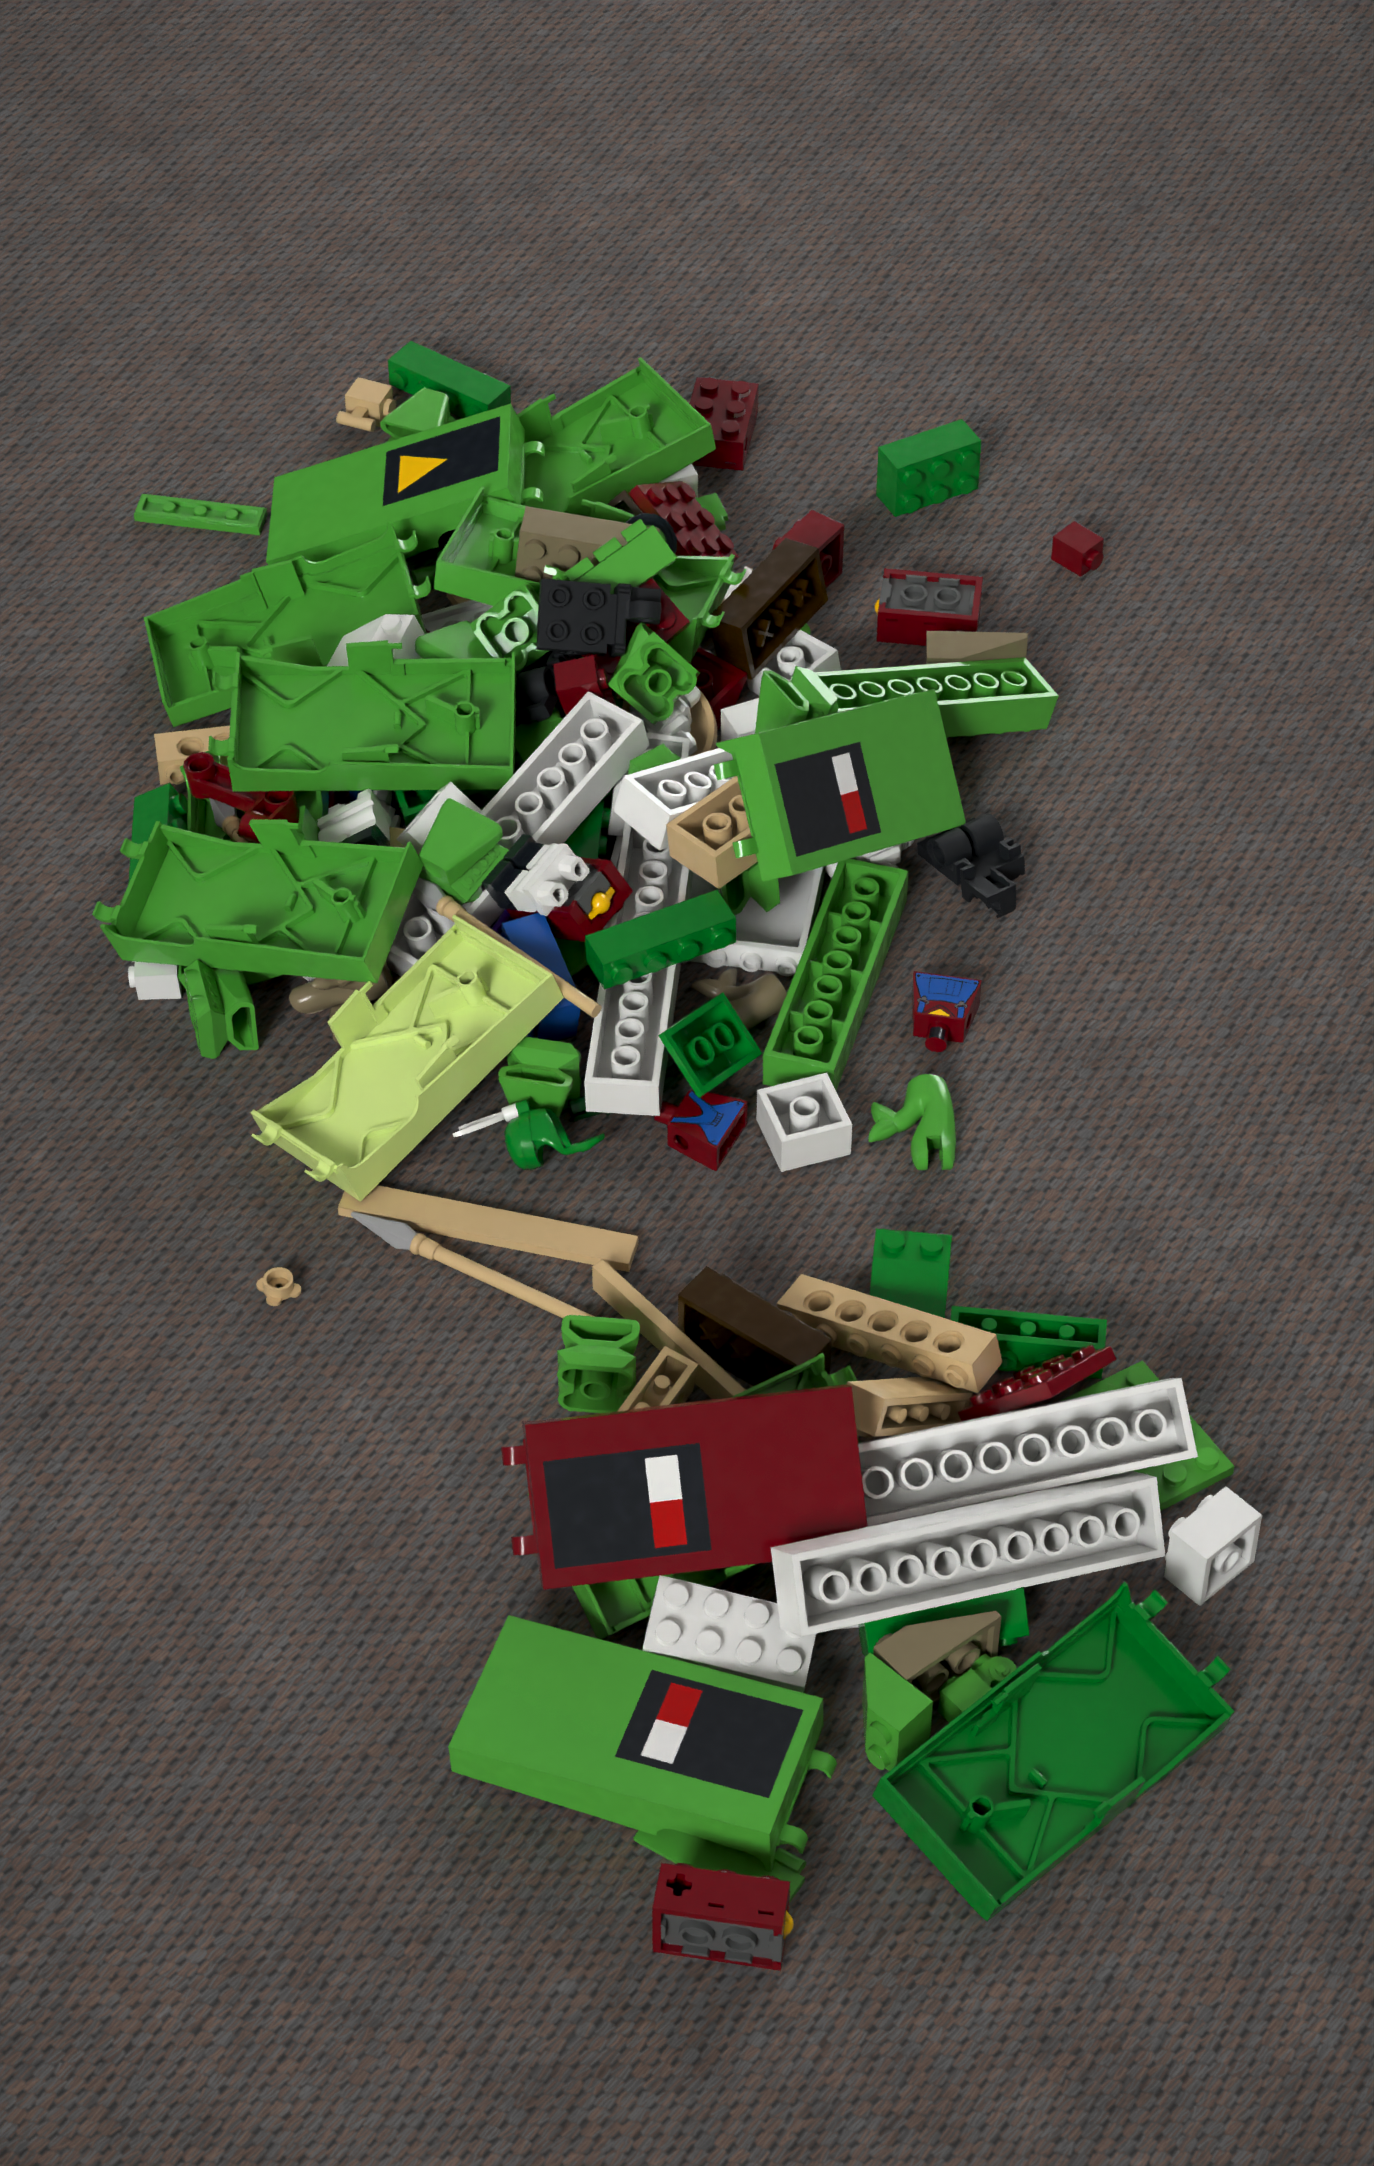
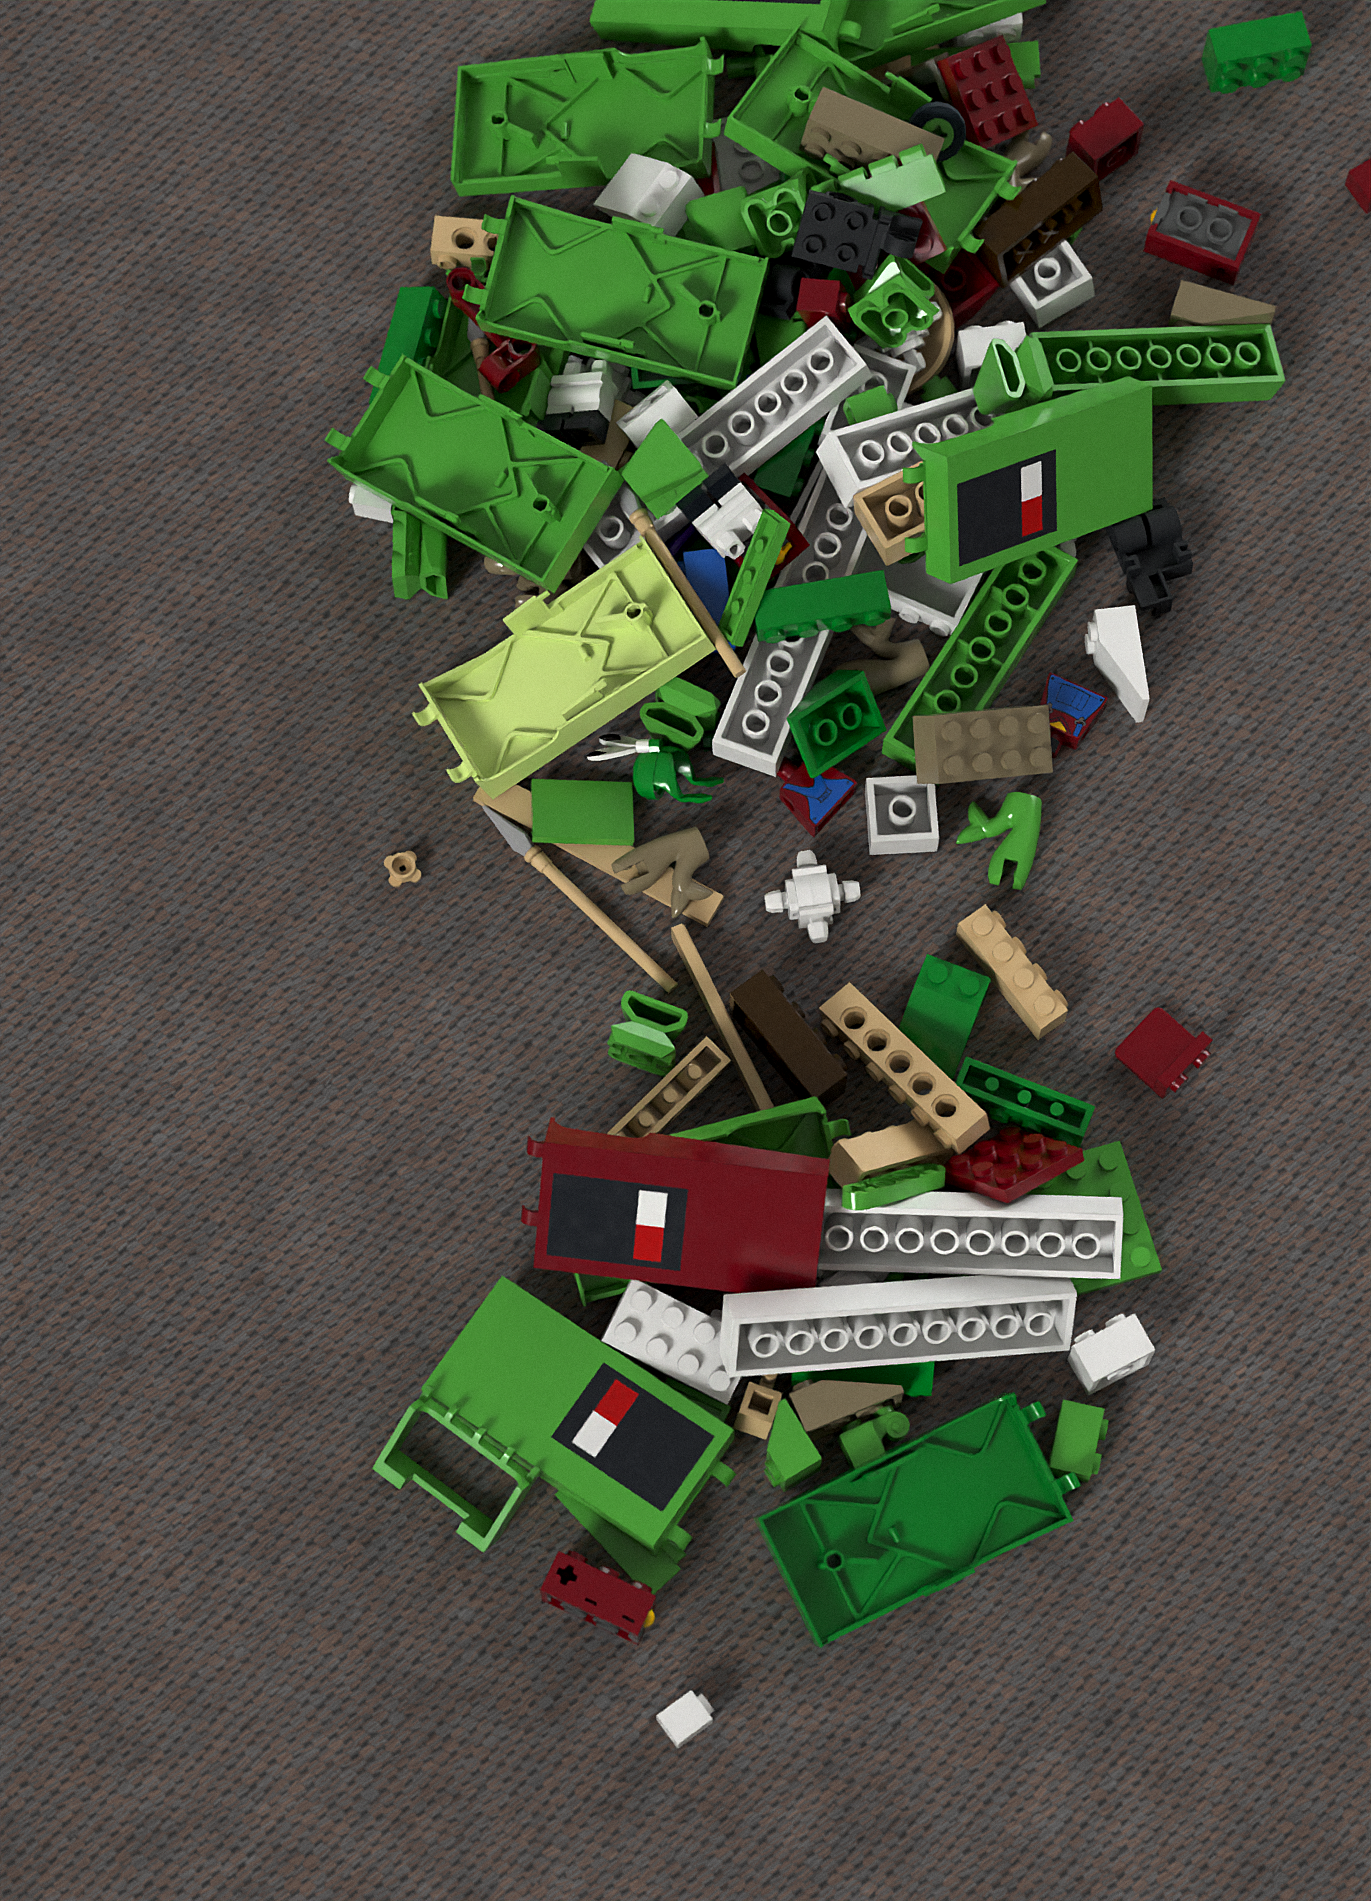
camera: 15 degrees right, 25 degrees up
(452, 1852) = (400, 1470): none -> bright green hinge
(461, 1192) = (582, 812): none -> bright green tile
(551, 1213) = (655, 857): none -> dark tan piece
(585, 914) = (753, 577): none -> bright green tile
(734, 1212) = (812, 896): none -> white piece
(841, 1685) = (758, 1407): none -> tan brick
(862, 2025) = (686, 1718): none -> white brick
(868, 1032) = (982, 744): none -> dark tan brick
(918, 1417) = (893, 1186): none -> bright green beam
(977, 1236) = (1012, 972): none -> tan brick
(982, 944) = (1118, 656): none -> white slope
(1157, 1273) = (1163, 1052): none -> dark red bracket
(1206, 1632) = (1076, 1440): none -> bright green brick

